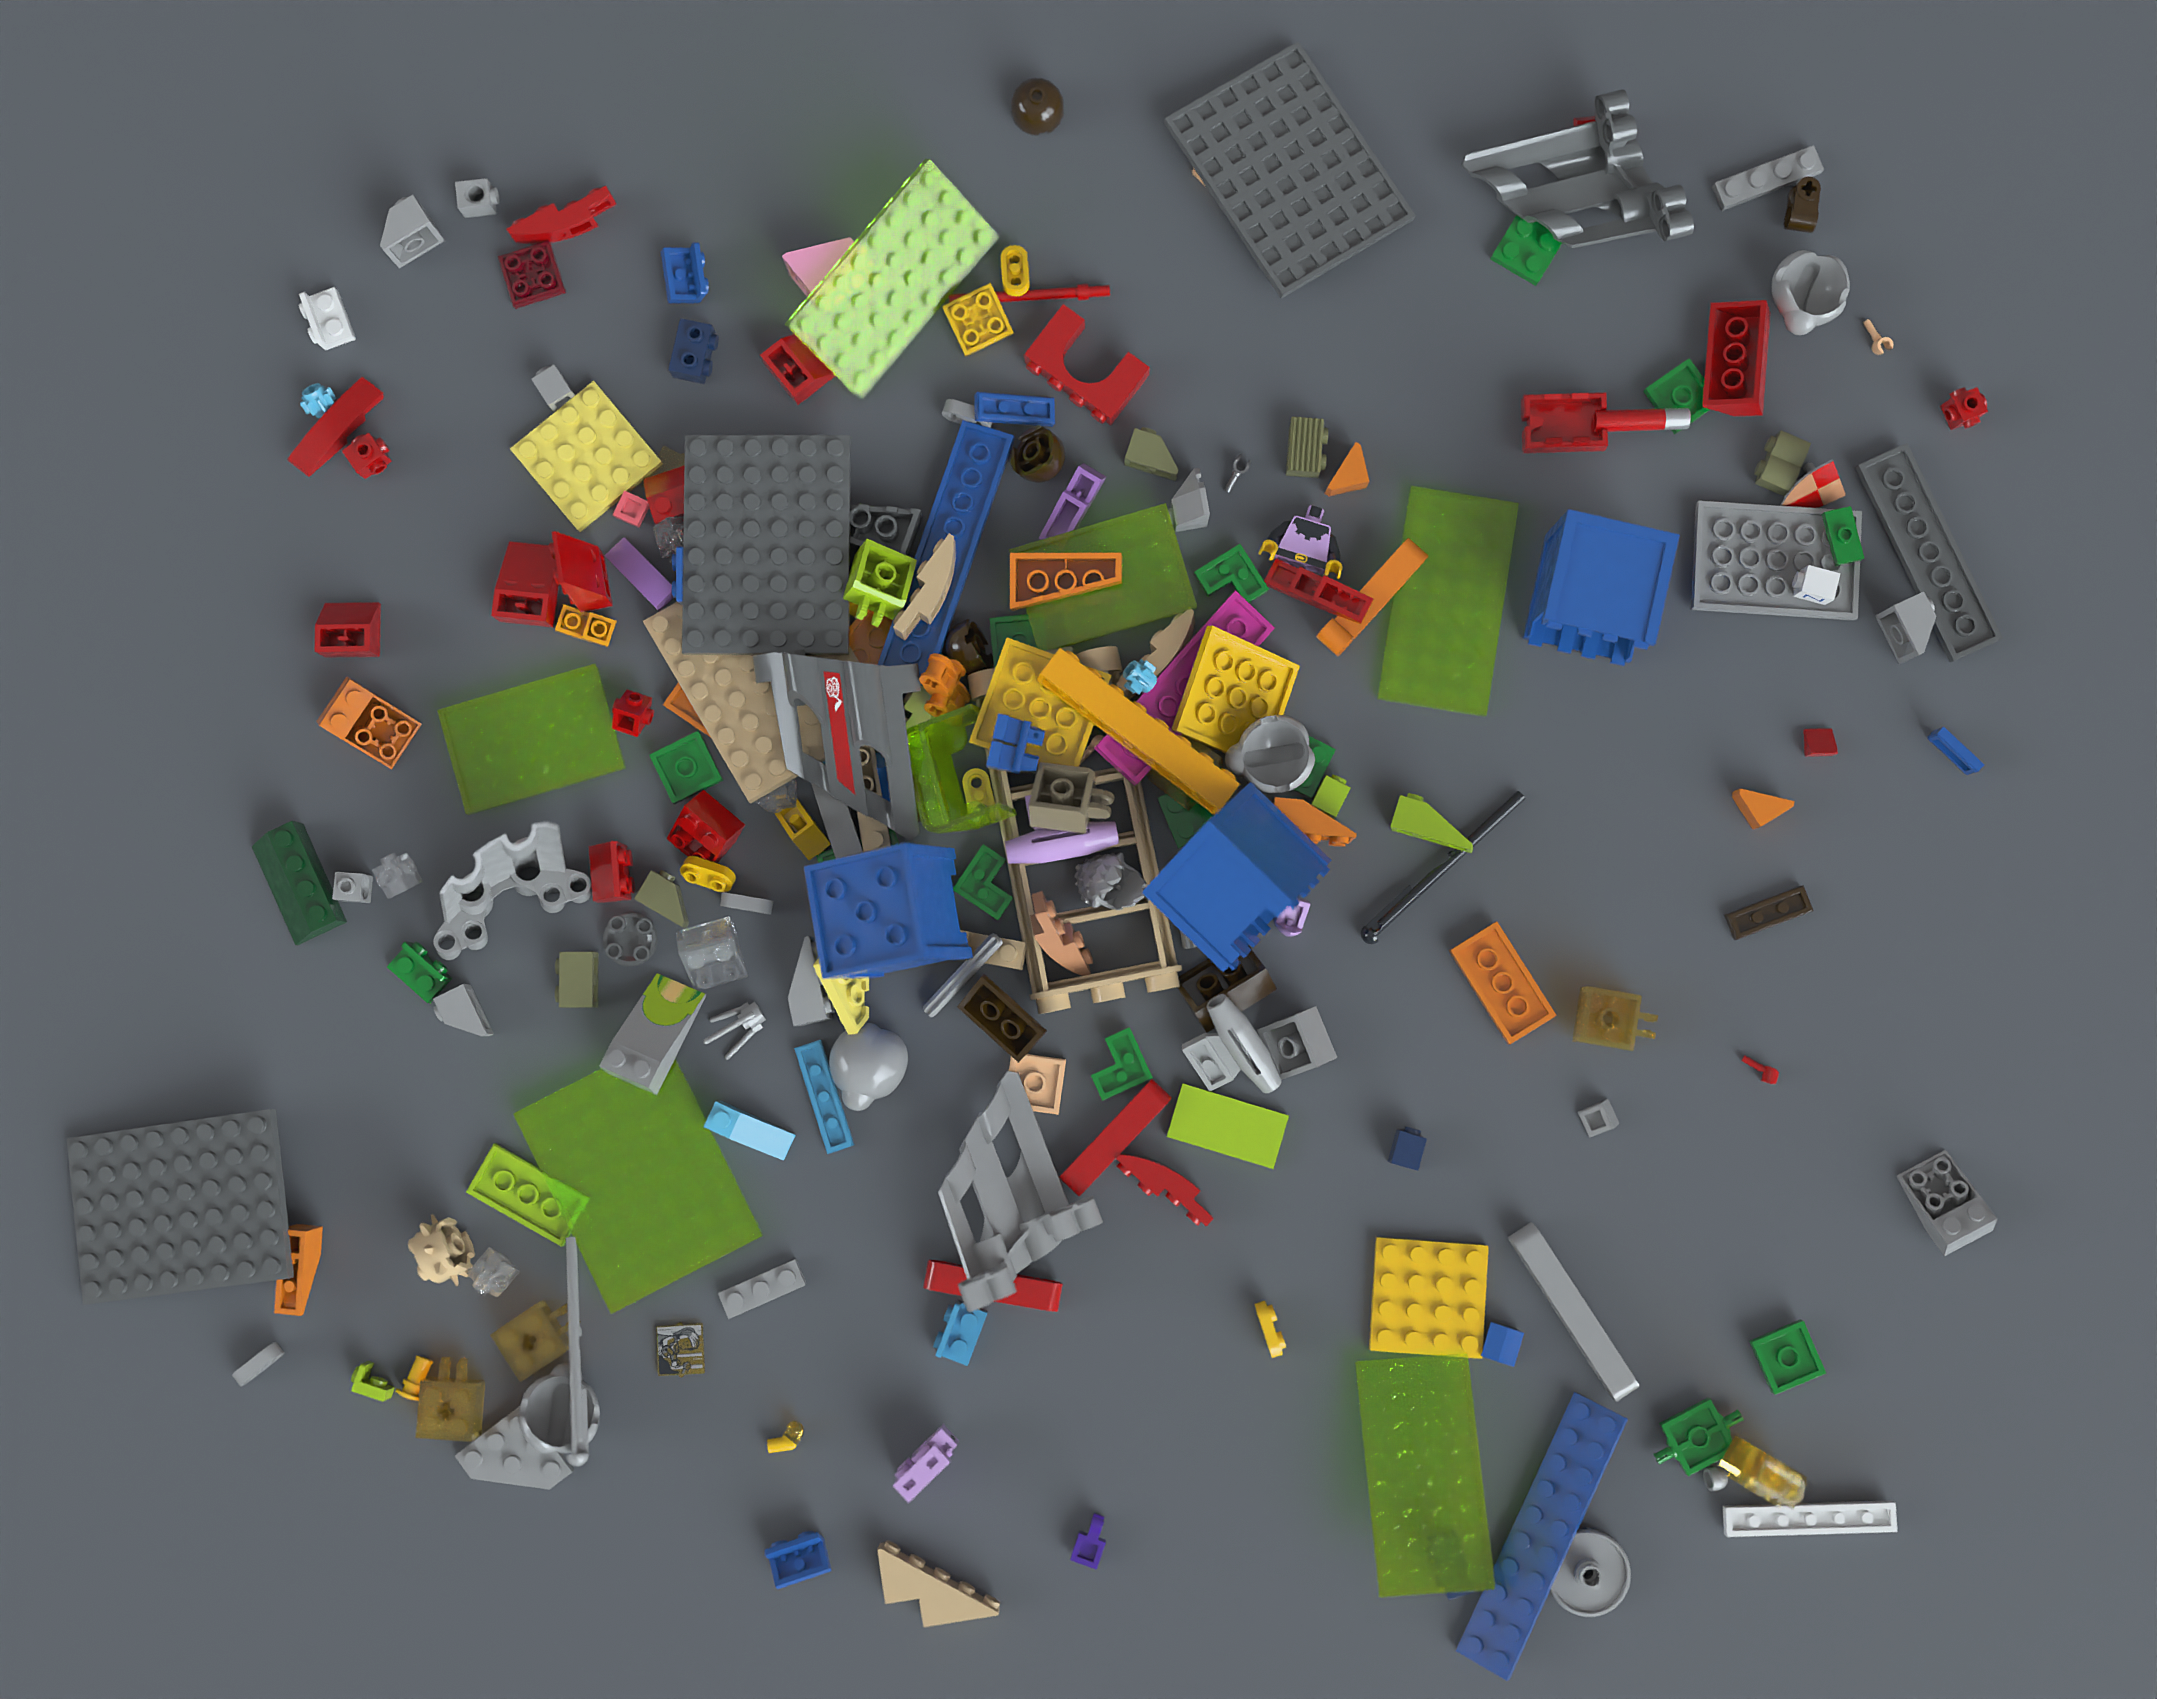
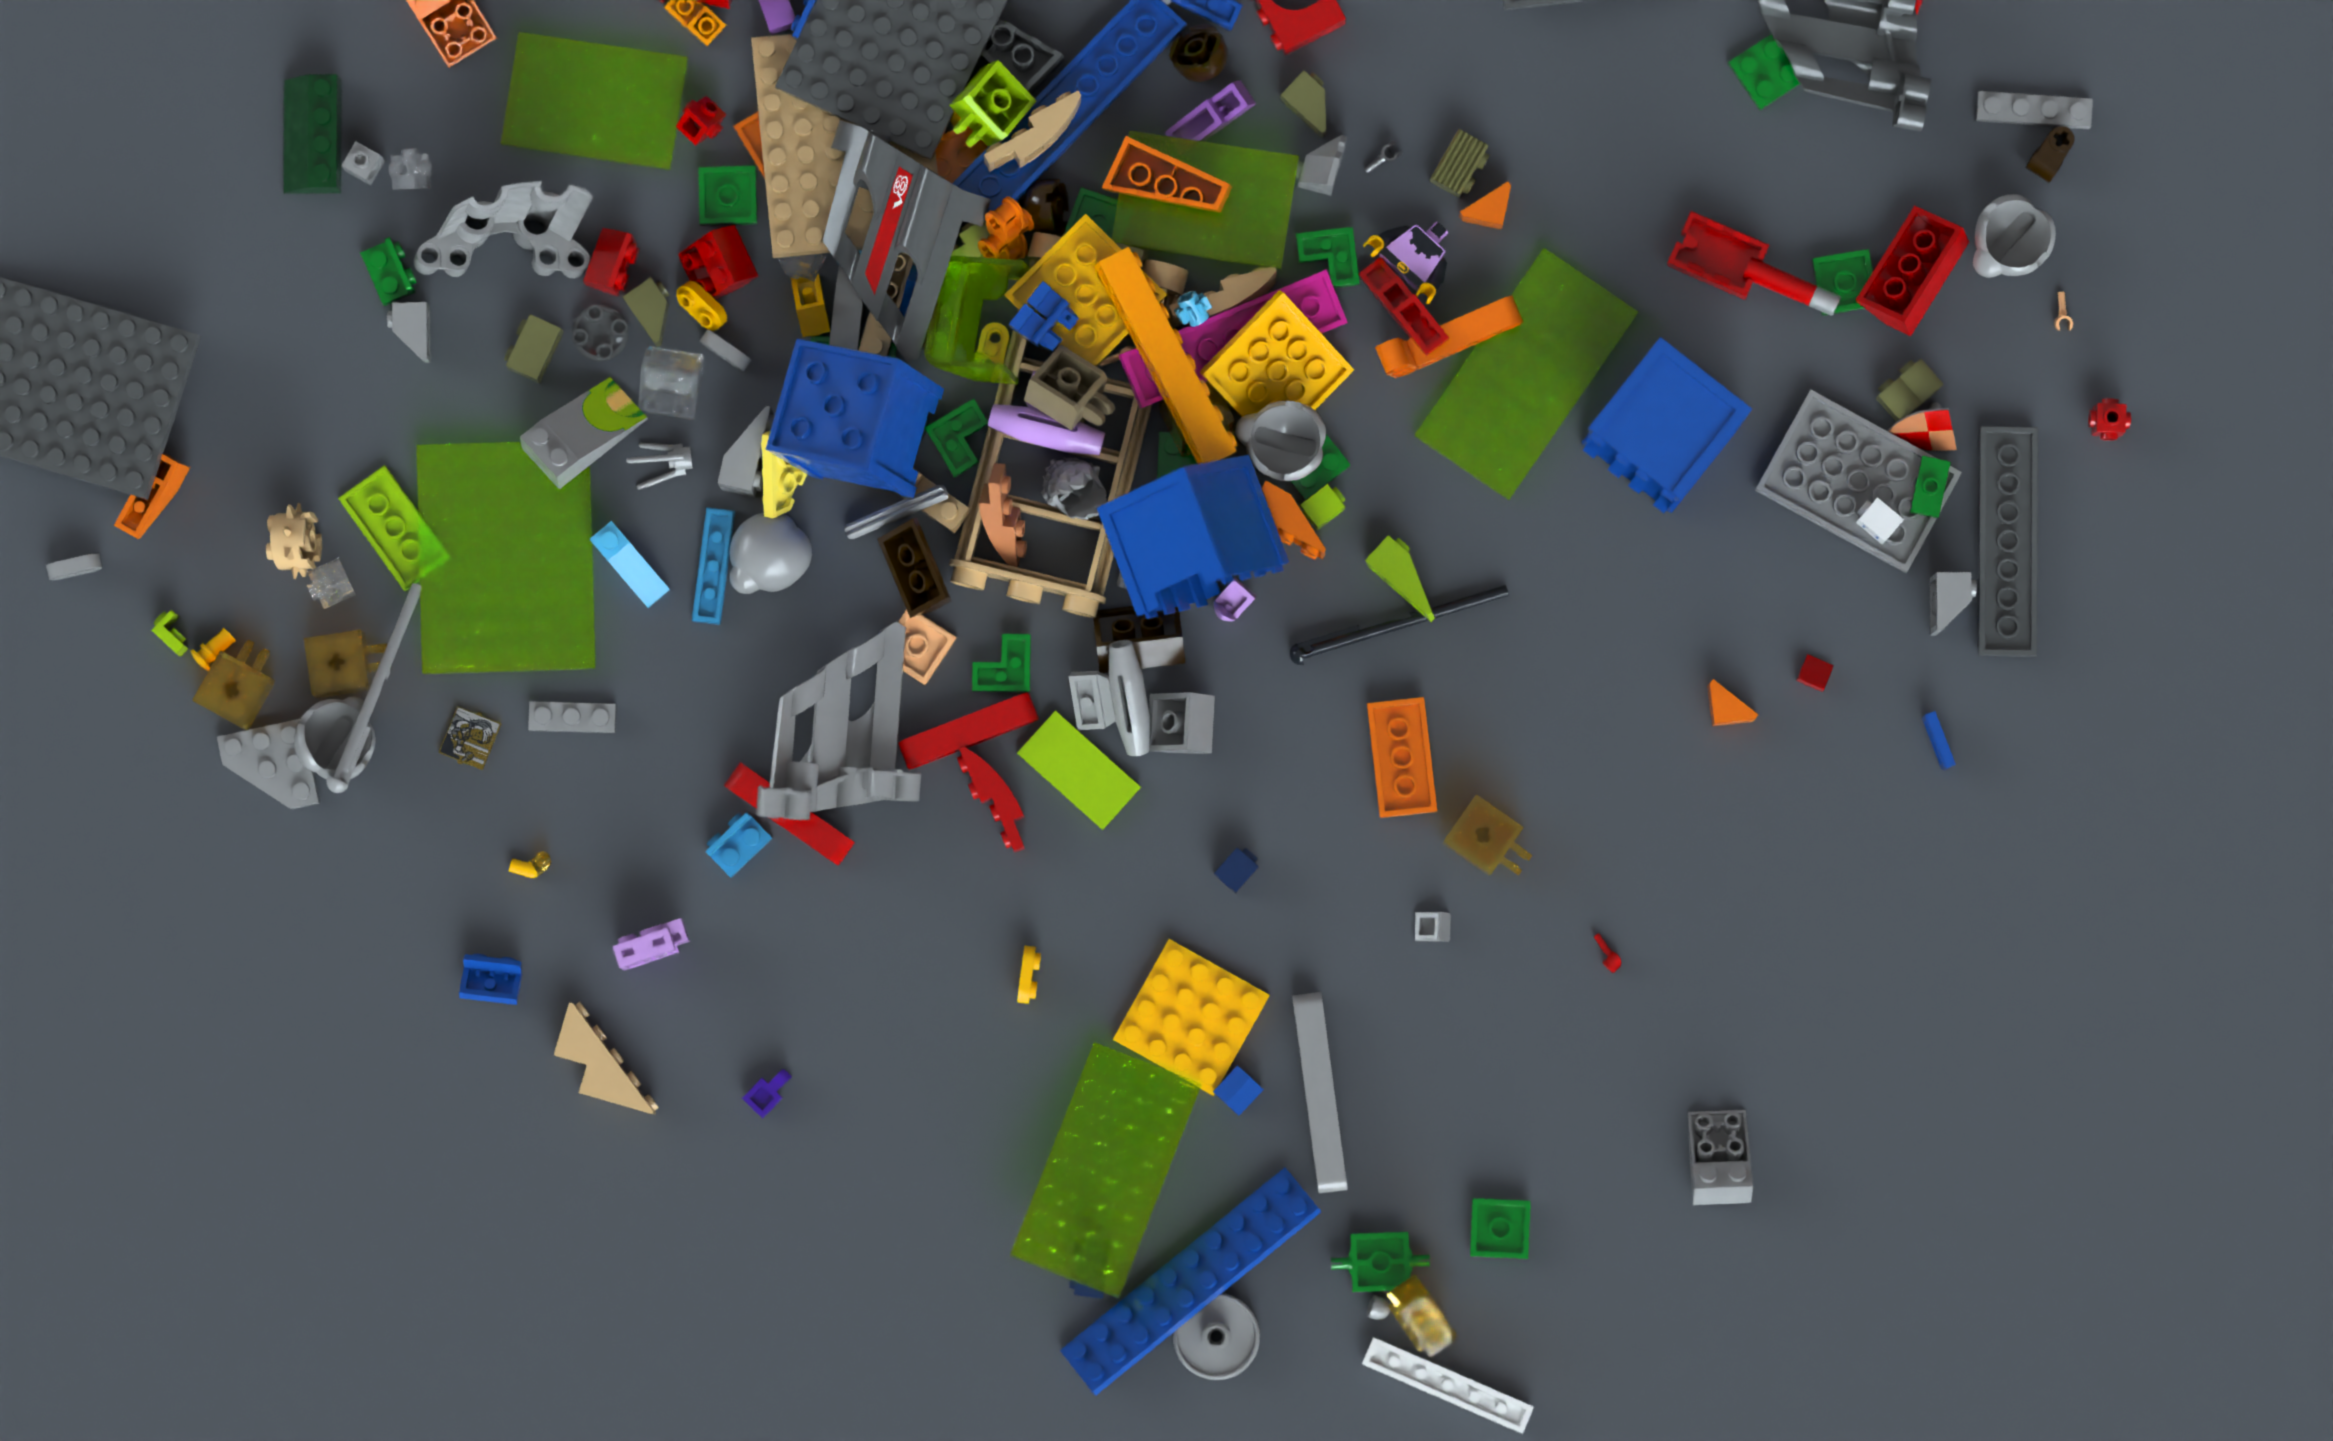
camera: 25 degrees right, 0 degrees up
(1768, 912) = (1687, 810): dark brown tile -> none

